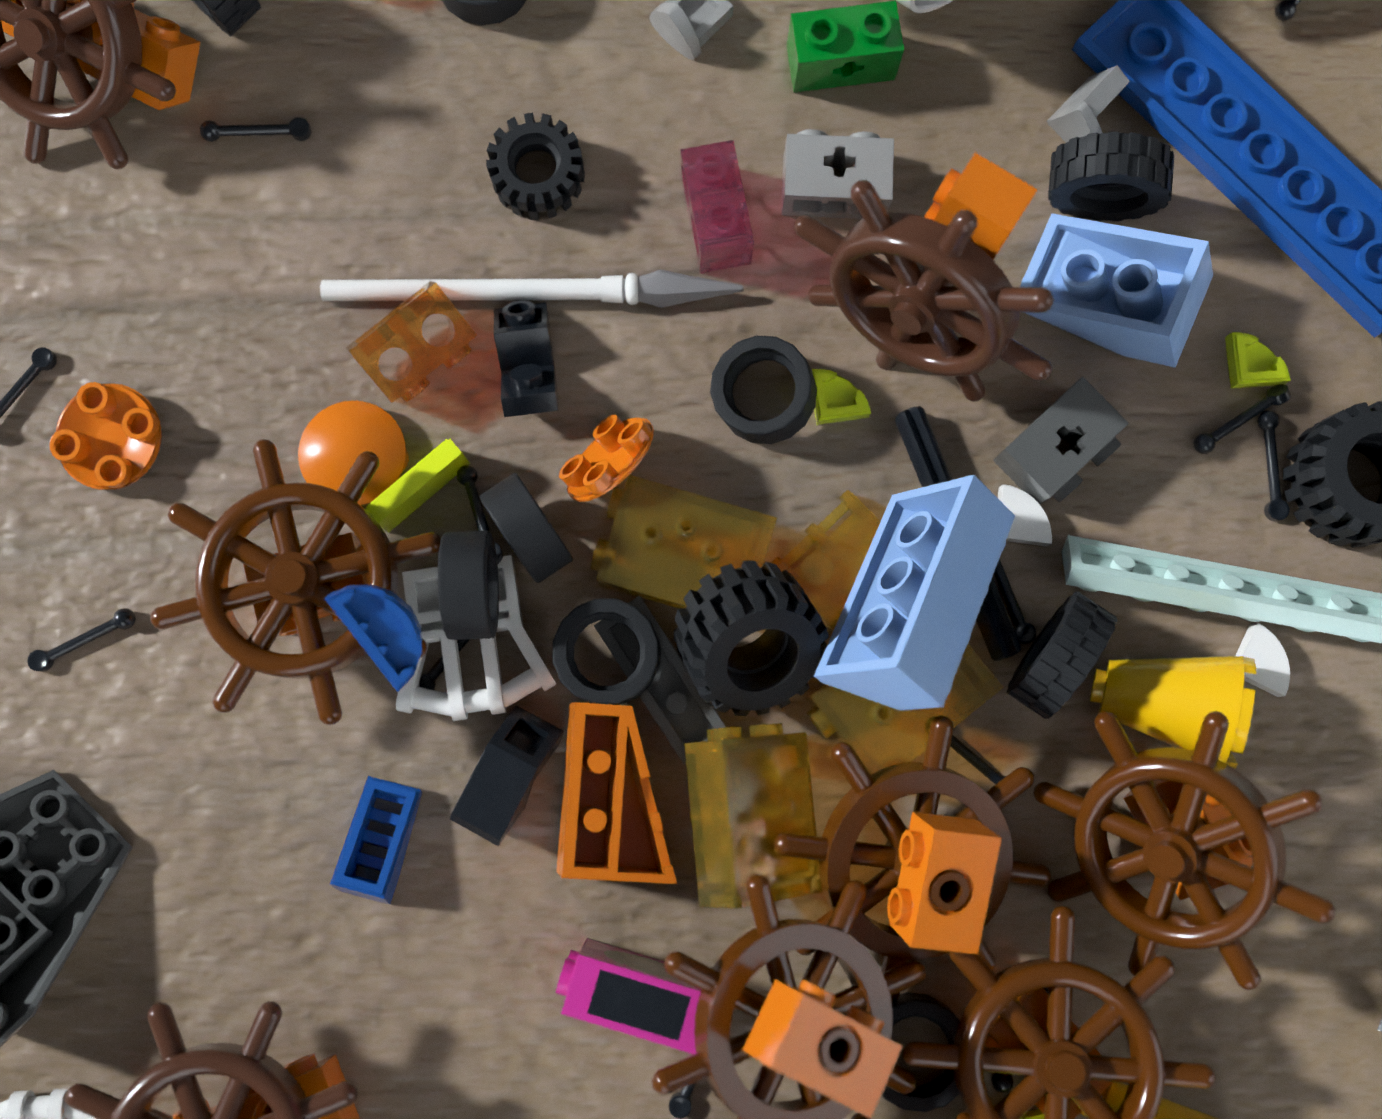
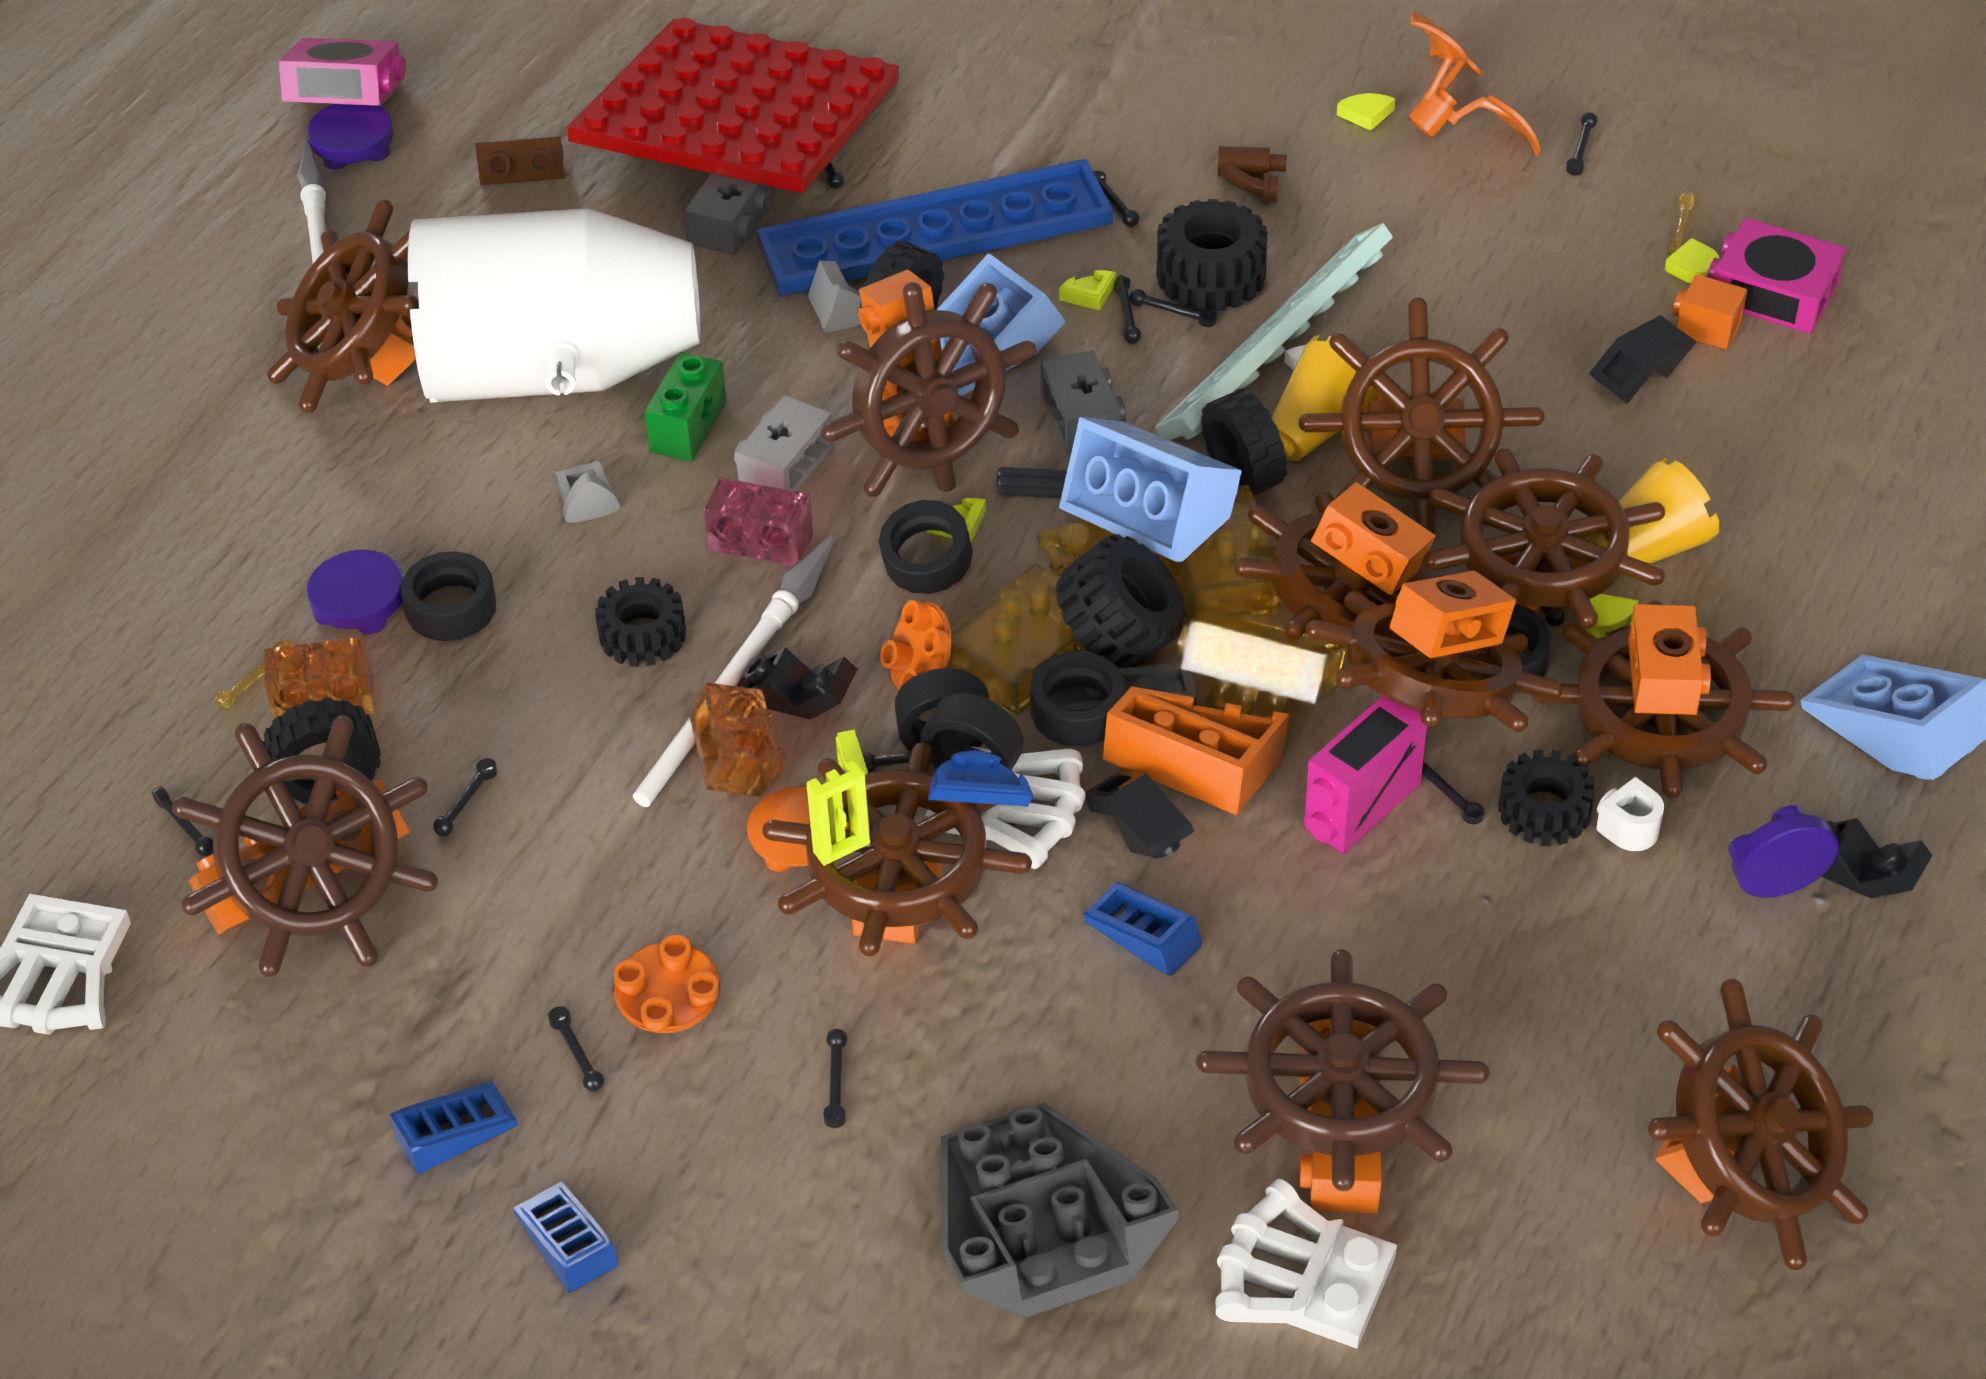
camera: 60 degrees left, 35 degrees down
(226, 525) = (854, 783): none -> neon yellow tile

